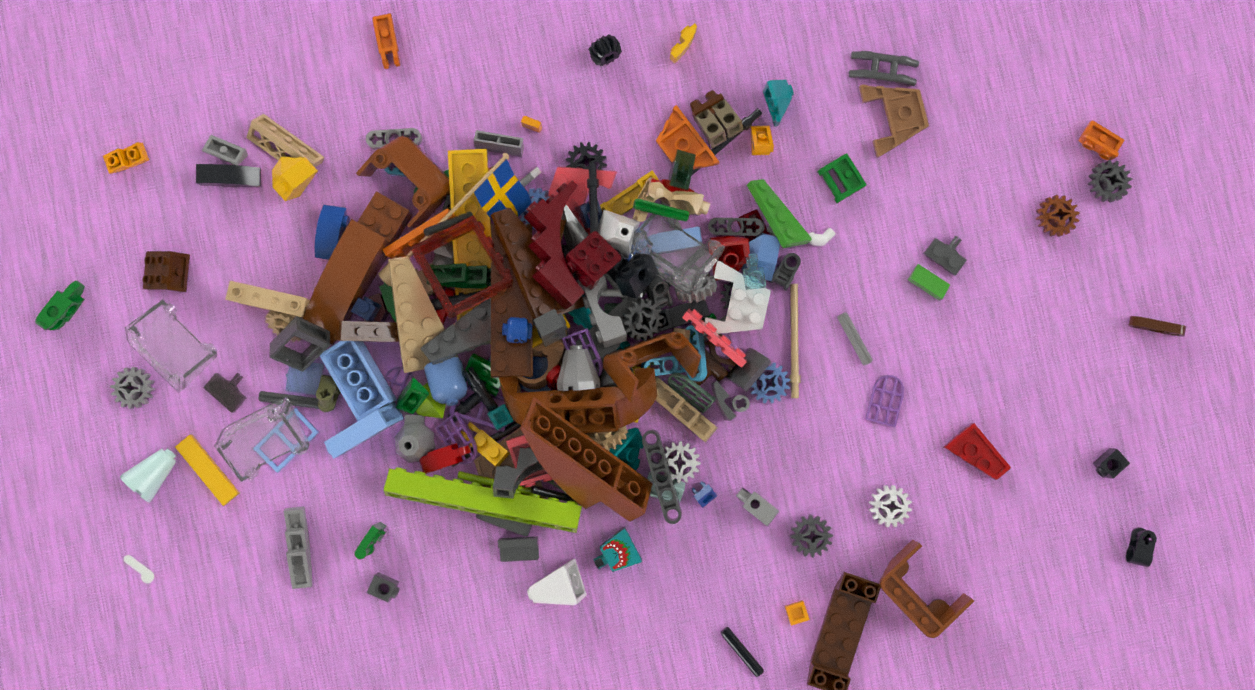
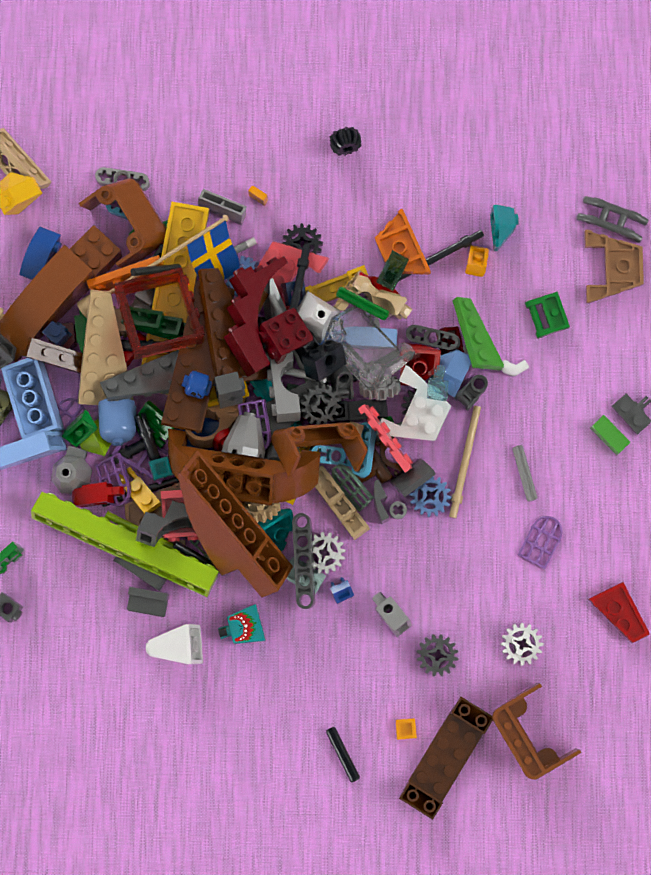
camera: 15 degrees right, 5 degrees down
(386, 38) = (138, 83): orange hinge -> none
(686, 38) = (427, 147): yellow slope -> none
(716, 118) = (437, 223): dark tan hips -> none

